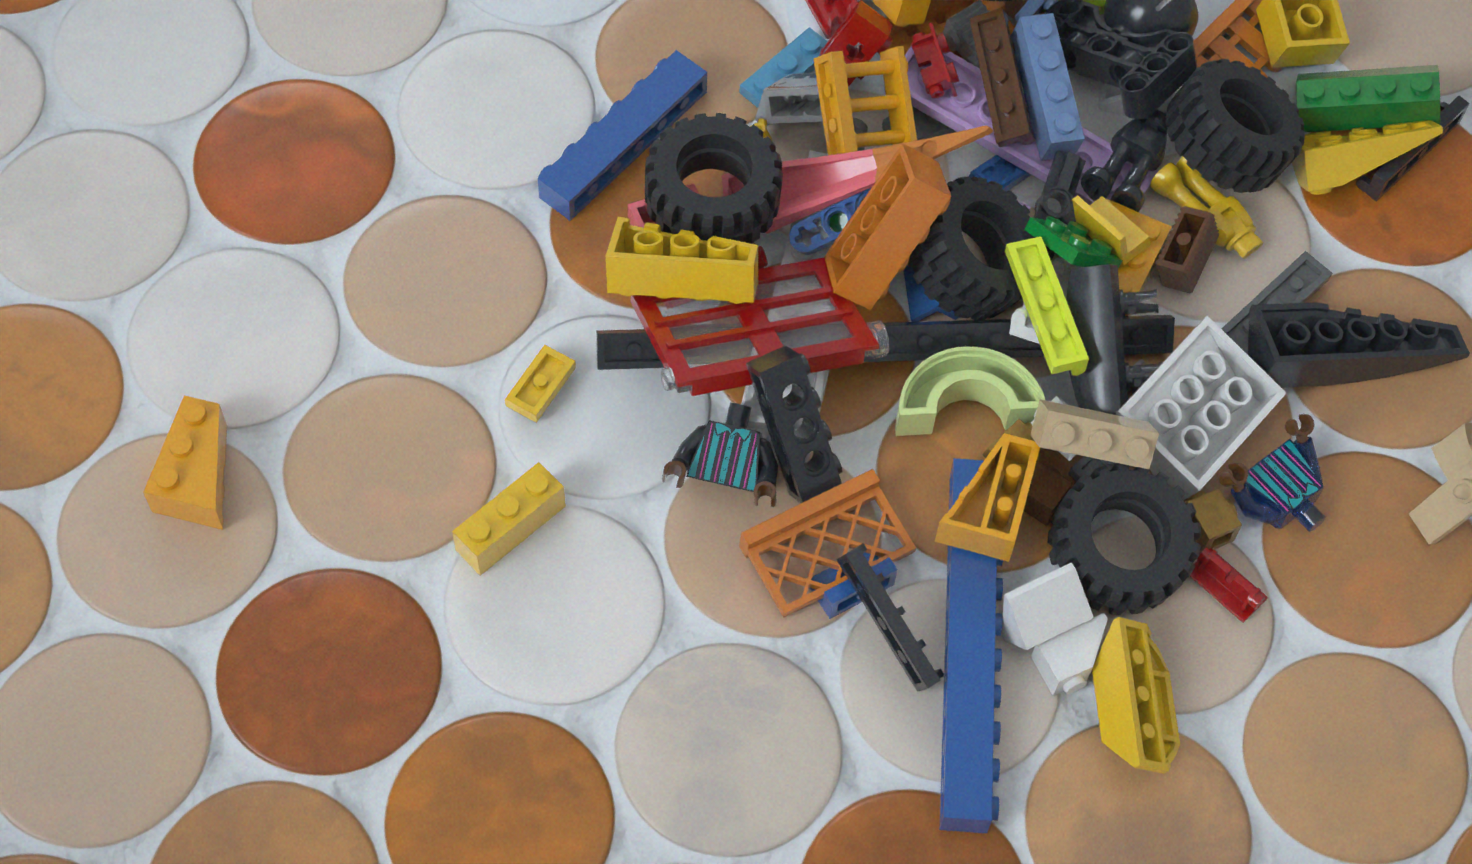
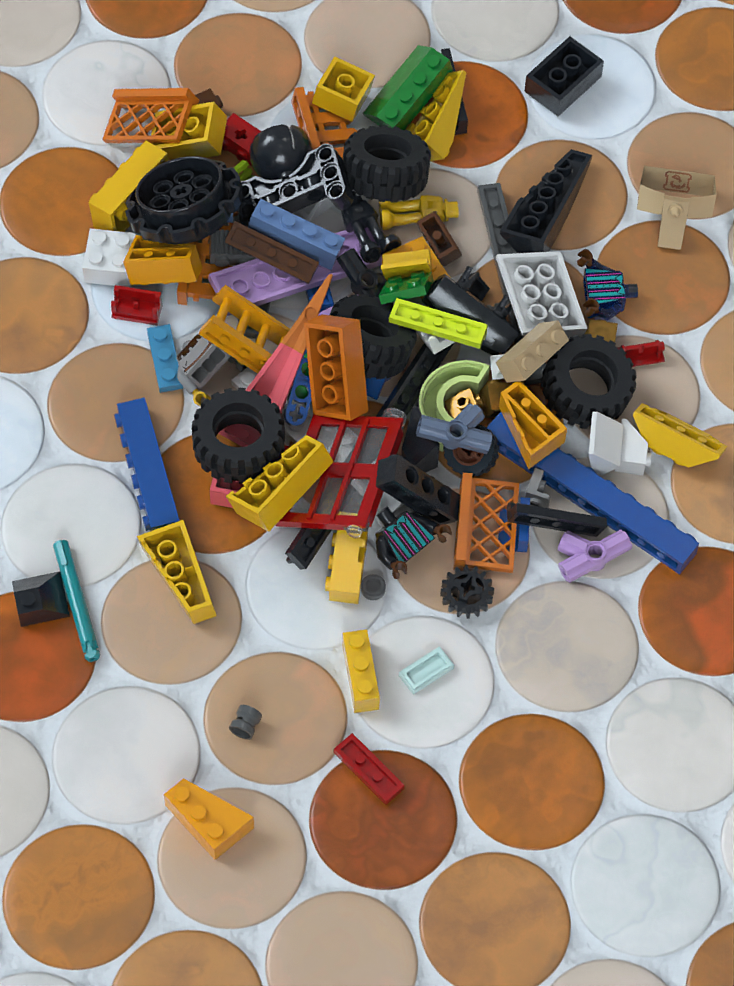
camera: 55 degrees left, 0 degrees up
(353, 432) = (246, 720): none -> dark grey wheel
(371, 128) = (40, 599): none -> black slope
(381, 609) = (369, 769): none -> red plate
(402, 161) = (76, 600): none -> teal piece
(507, 244) = (178, 565): none -> yellow wedge
(540, 383) = (283, 607): yellow plate -> none
(570, 597) = (426, 670): none -> light aqua tile
(644, 468) = (373, 587): none -> dark grey tile
(648, 419) = (346, 567): none -> yellow wedge
(697, 584) = (474, 599): none -> black gear
(860, 26) = (186, 309): red brick -> none
(872, 398) = (419, 450): none -> black slope
(877, 681) = (580, 550): none -> lavender piece
(924, 570) = (536, 489): none -> light grey bracket
(926, 418) = (463, 425): none -> sand blue piece
(927, 473) = (471, 461): none -> black wheel
(940, 75) = (246, 279): red hinge -> none
(971, 421) = (462, 399): none -> pearl gold brick

